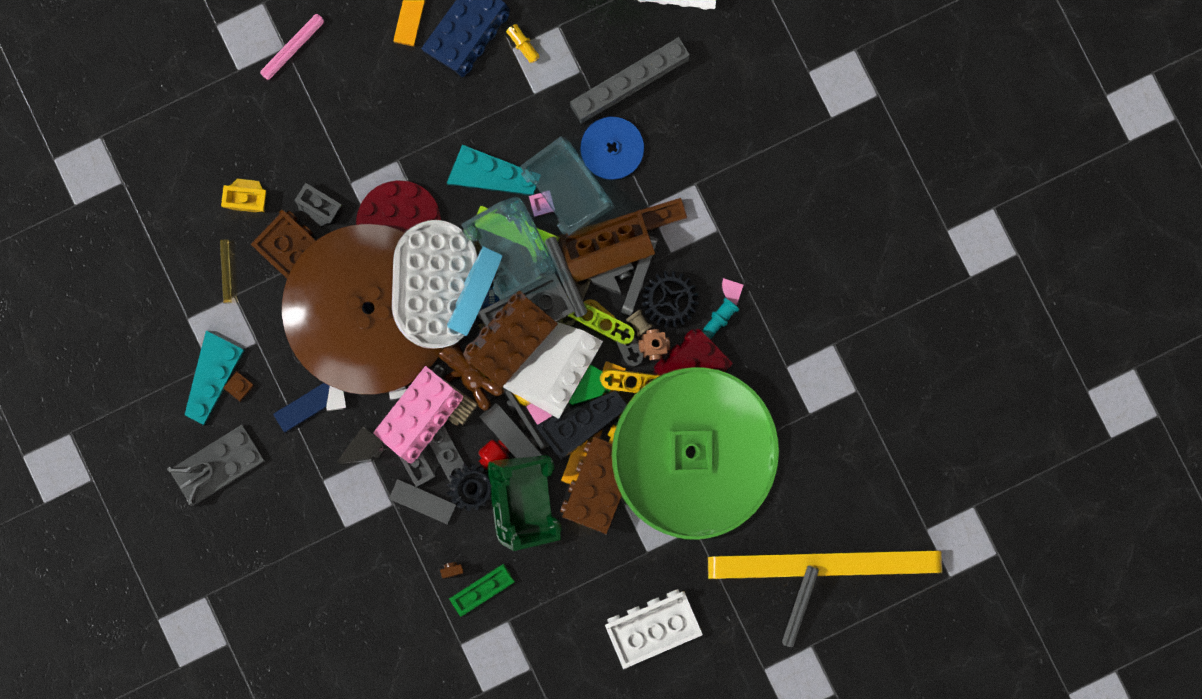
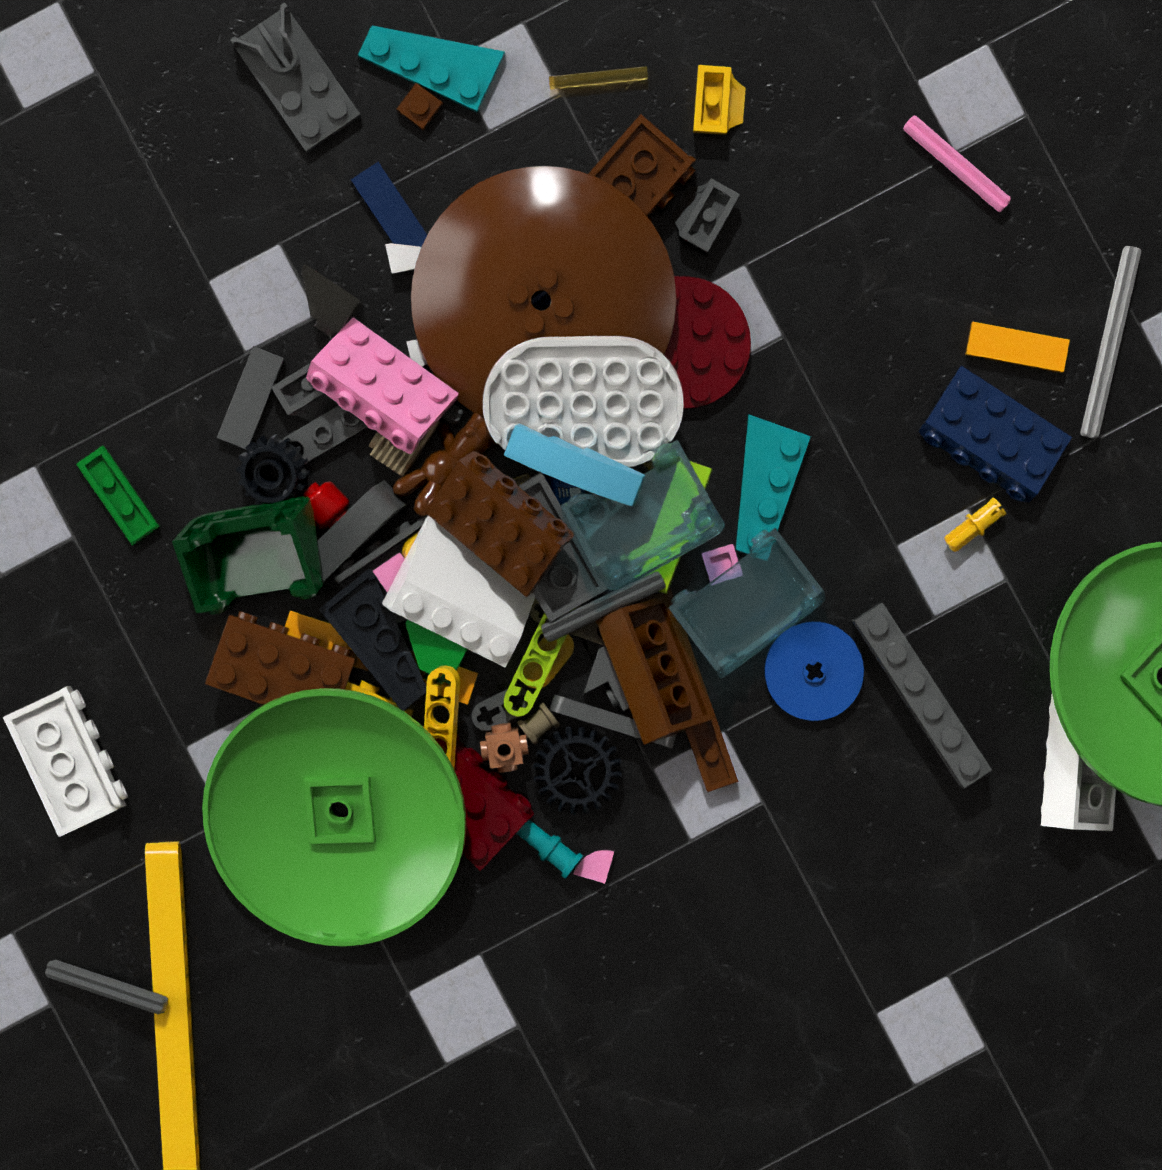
camera: 85 degrees right, 5 degrees up
(451, 569) = (145, 447): reddish brown plate -> none

